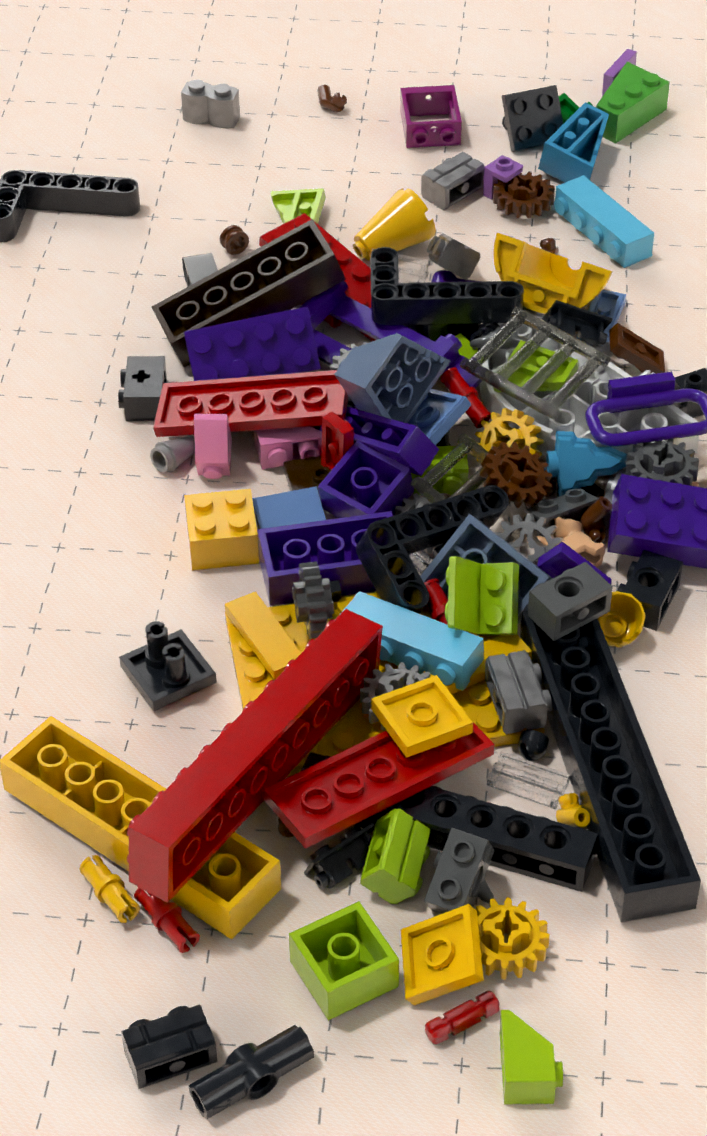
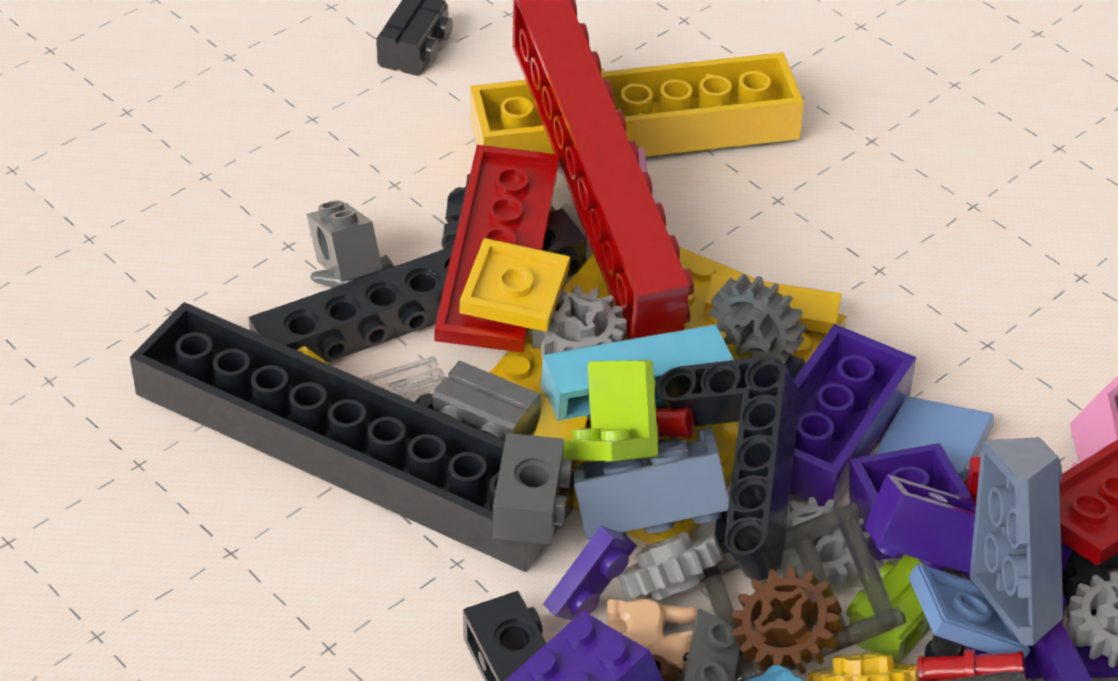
camera: 130 degrees right, 0 degrees up
(167, 667) = (811, 236): black plate -> none
(221, 529) = (973, 367): yellow brick -> none
(251, 1071) = (339, 61): black piece -> none
(344, 960) = (359, 141): lime brick -> none
(396, 857) = (411, 225): lime brick -> none
(441, 954) = (285, 190): yellow plate -> none
(462, 1017) = (236, 191): red axle -> none
(525, 943) = (263, 250): yellow gear -> none
(527, 1063) = (151, 187): lime slope -> none
(623, 621) = (496, 576): yellow hair -> none

